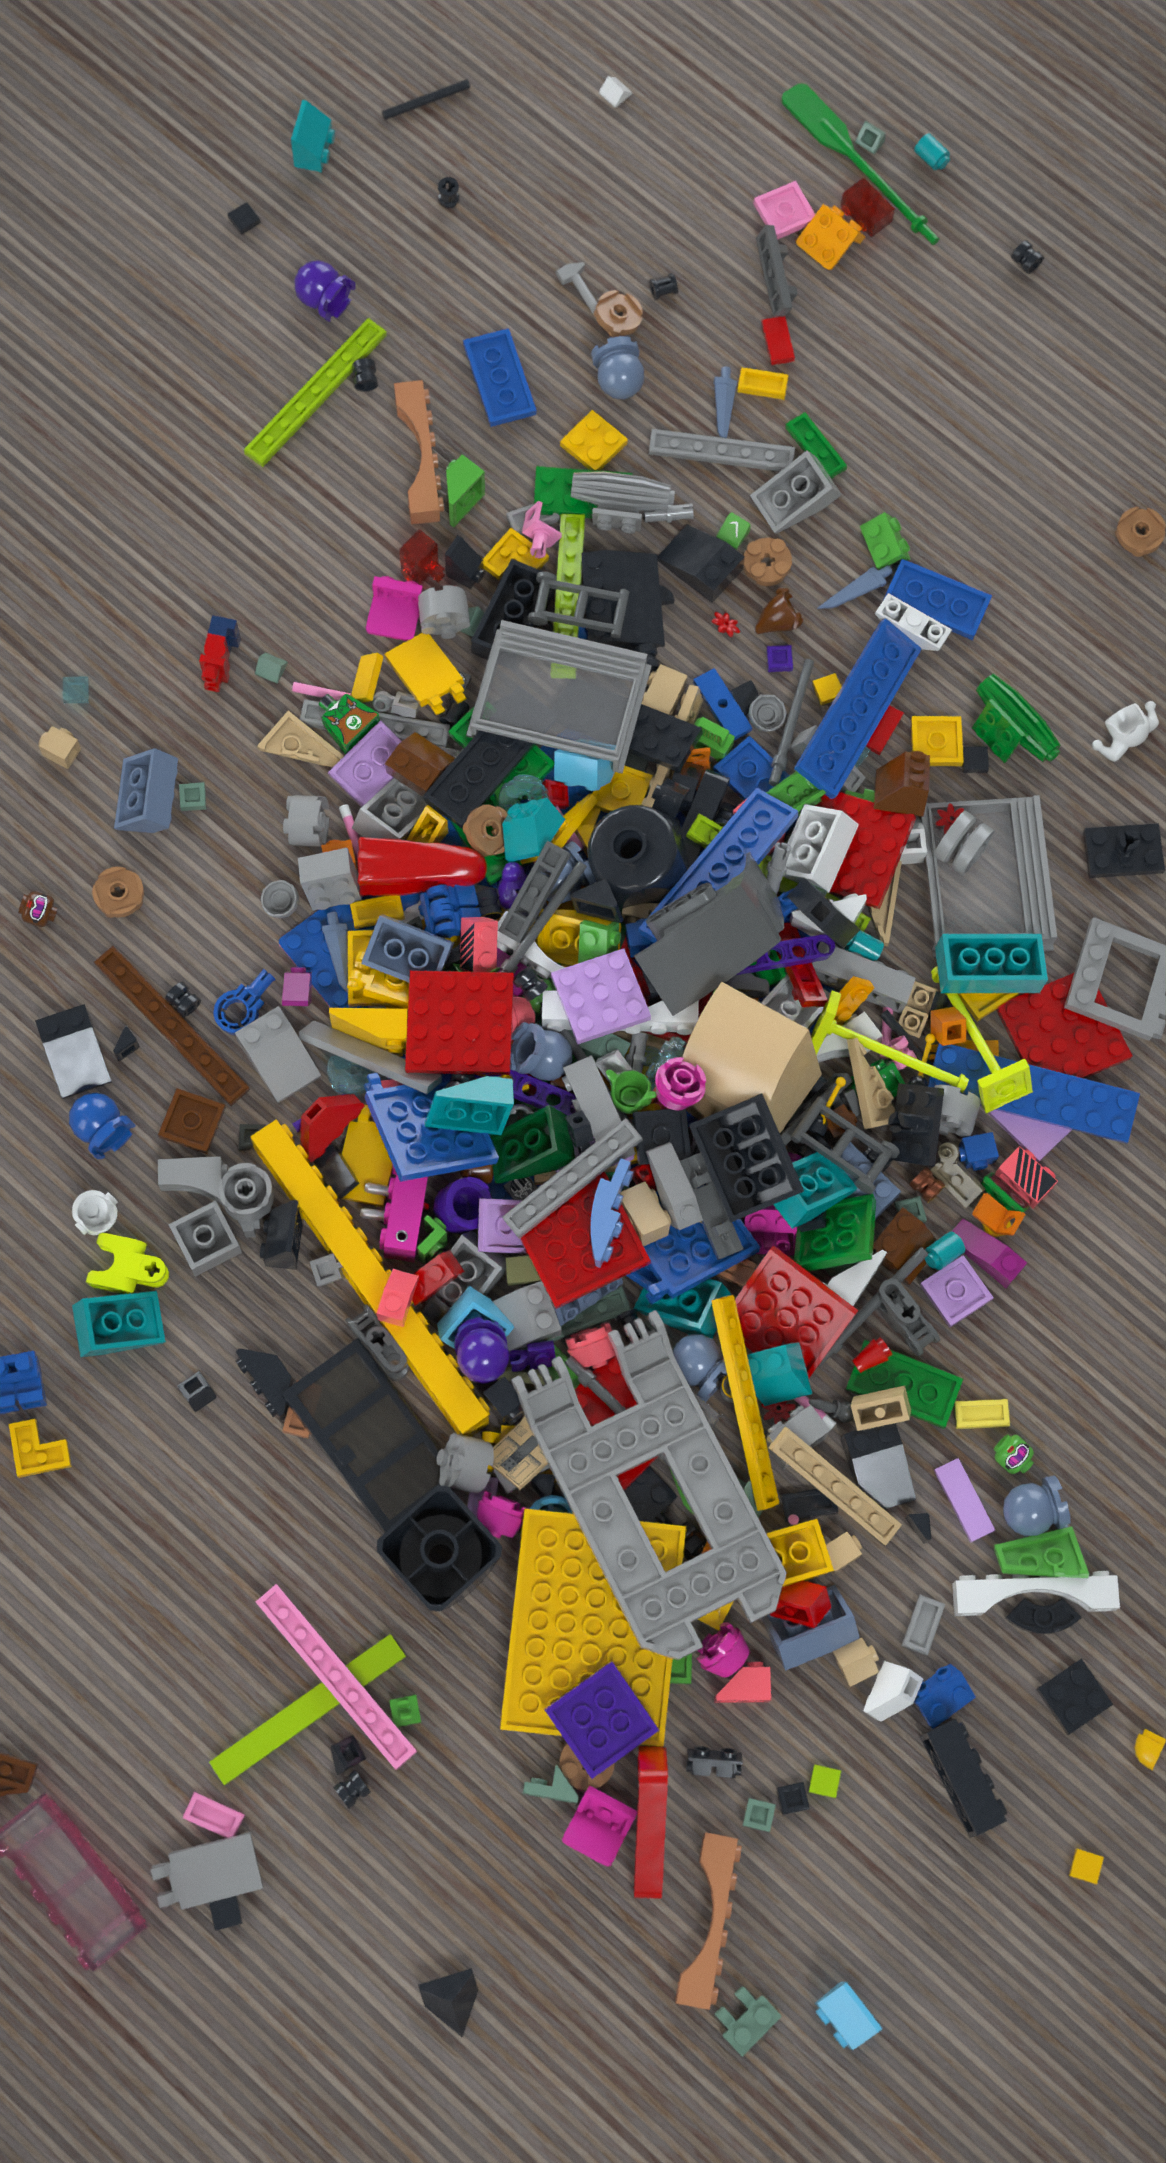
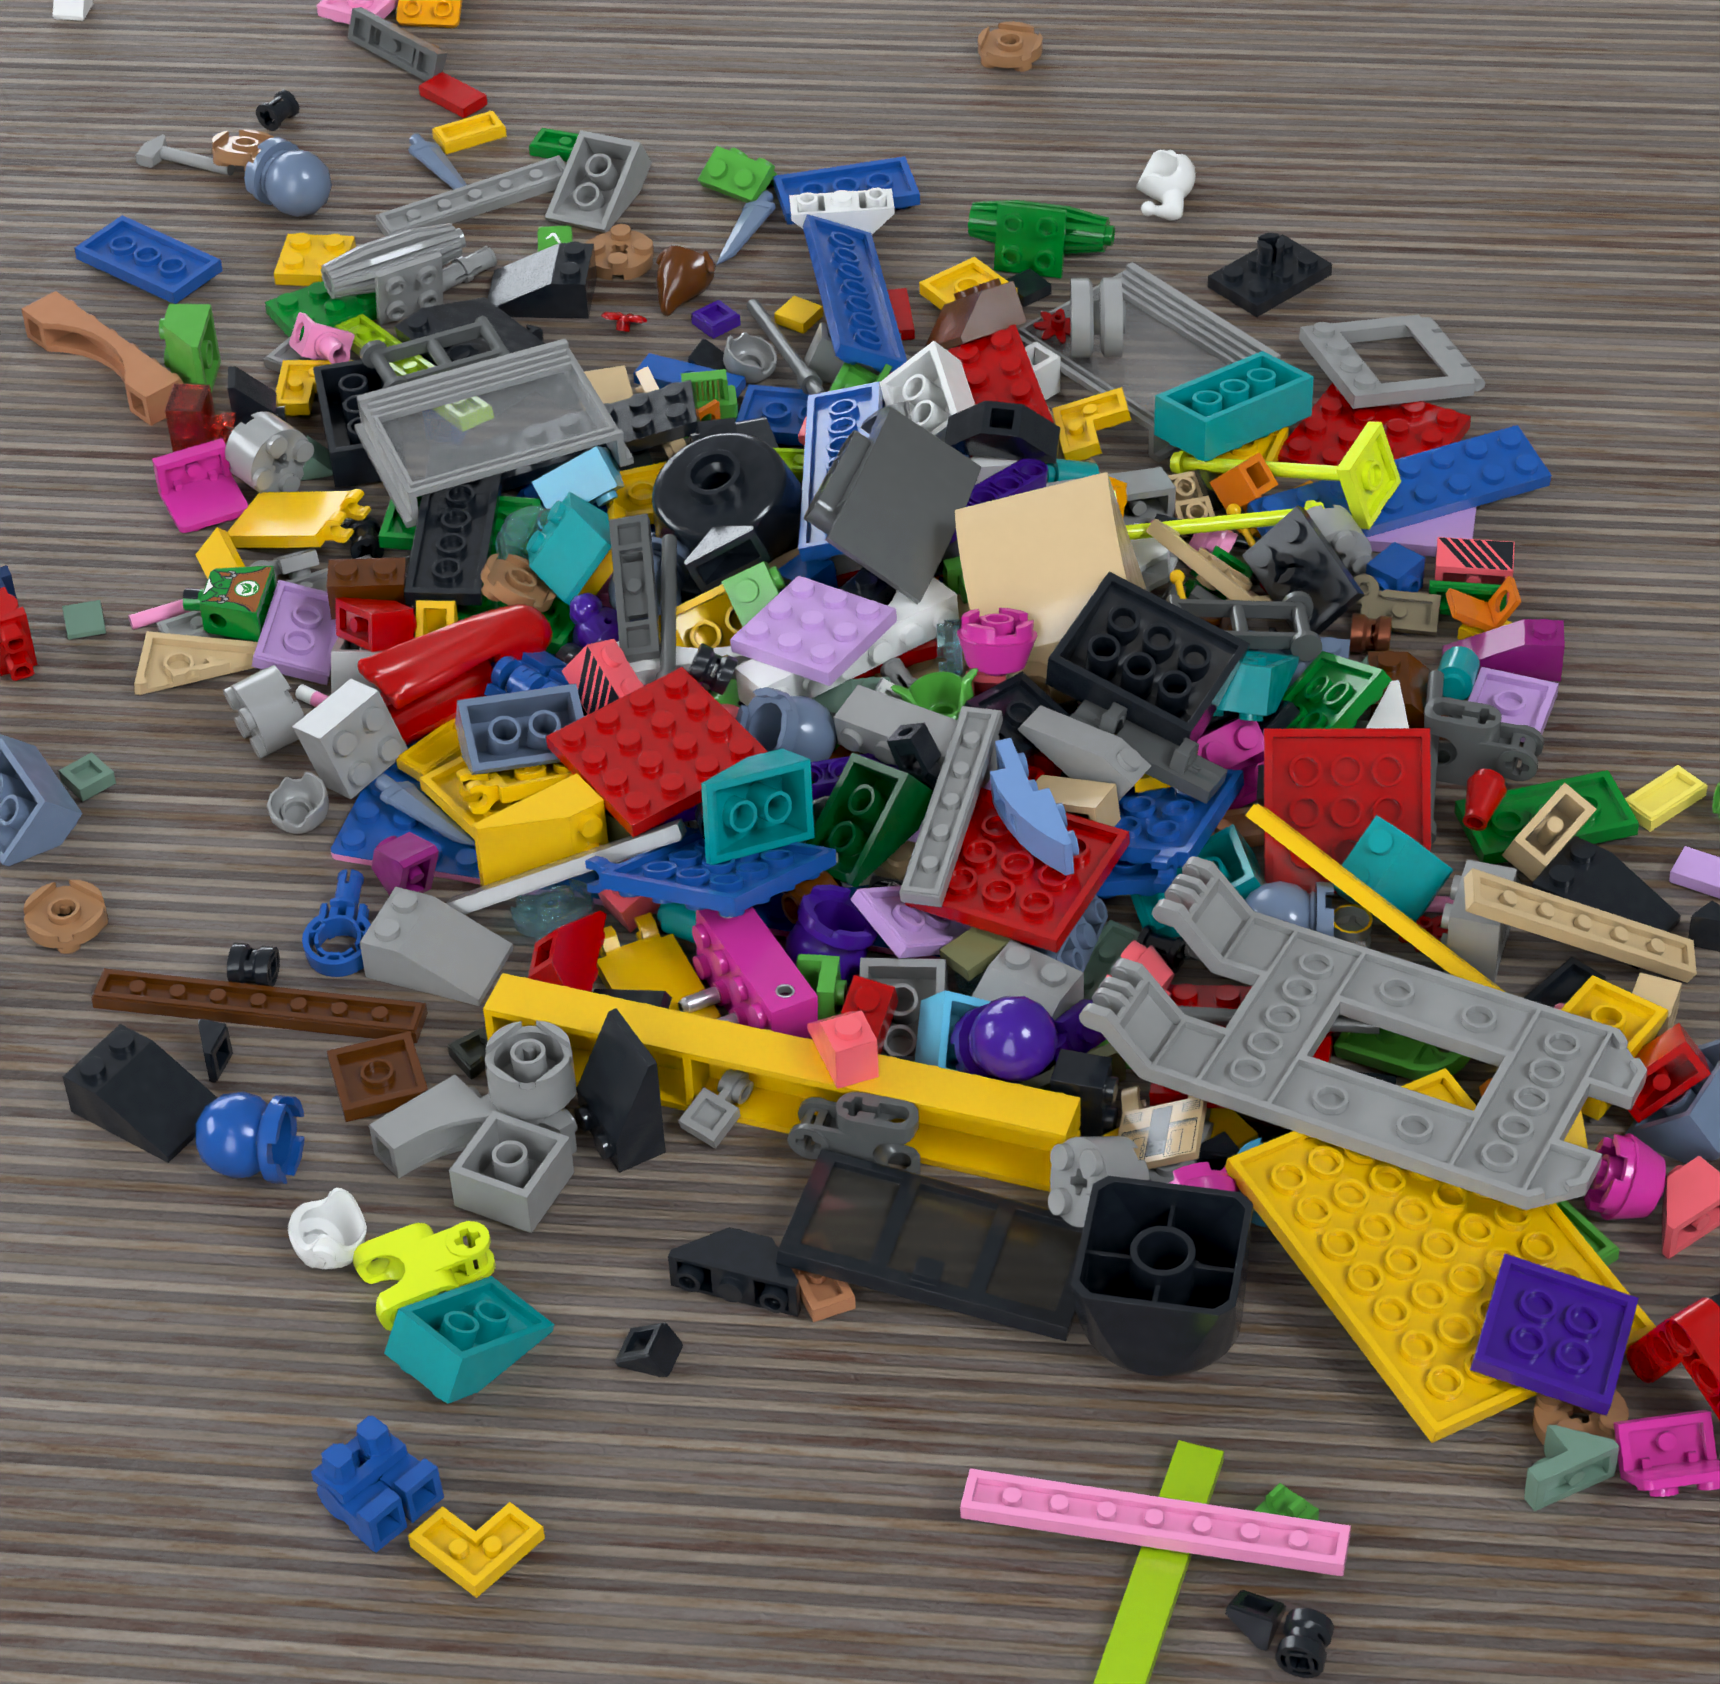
camera: 30 degrees left, 30 degrees down
(398, 803) = (374, 622): none -> red slope
(899, 909) = (1084, 417): none -> yellow plate

